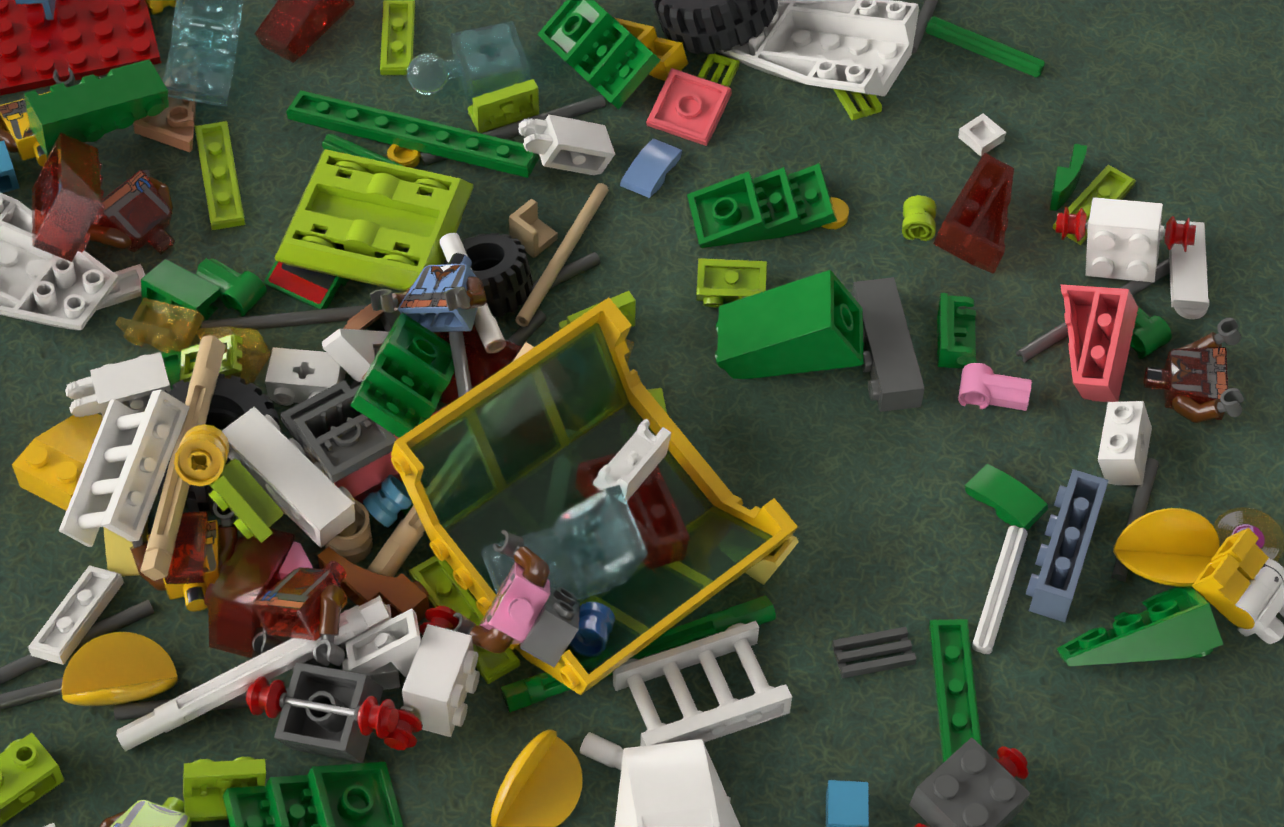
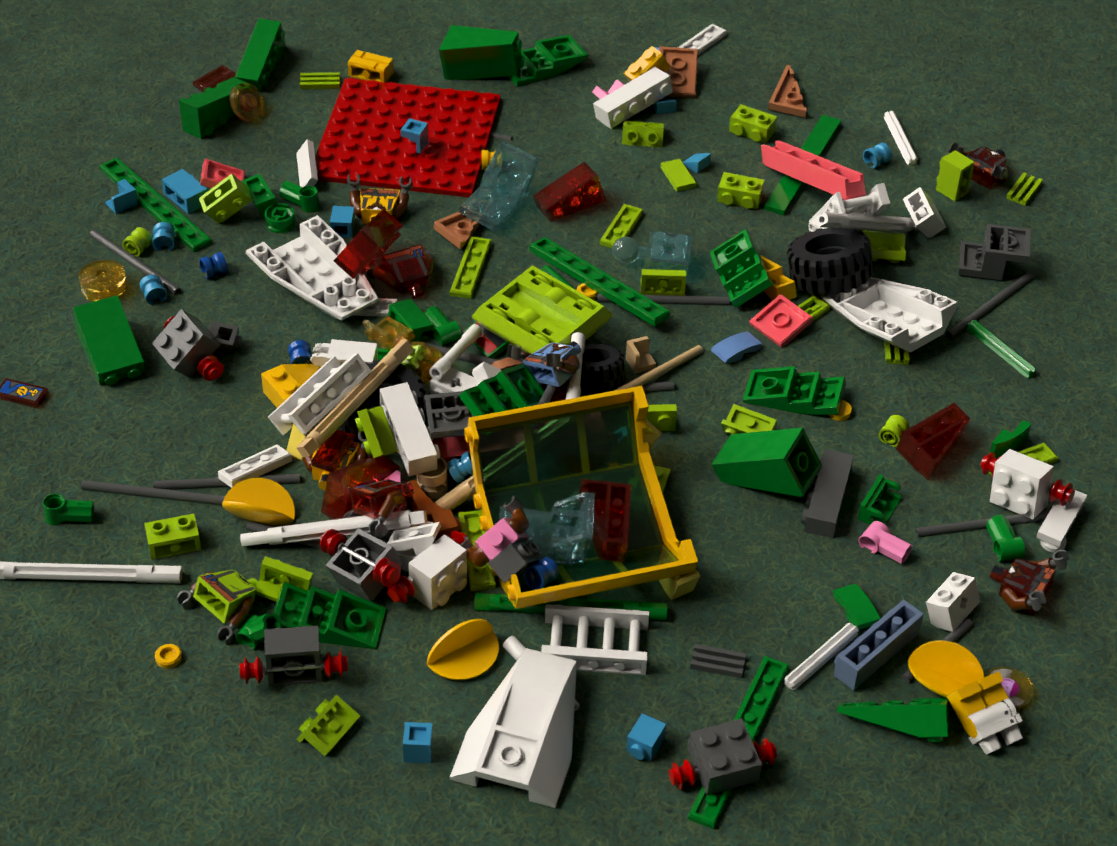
camera: 25 degrees right, 10 degrees down
(47, 406) = (300, 352): none -> blue wheel
(96, 104) = (416, 201): green wedge -> none
(201, 455) = (361, 395): yellow wheel -> none
(275, 347) = (453, 354): none -> white piece
(568, 143) = (688, 314): white hinge -> none
(634, 460) = (615, 489): white hinge -> none
(981, 134) = (966, 397): white plate -> none
(1099, 338) = (970, 534): coral wedge -> none

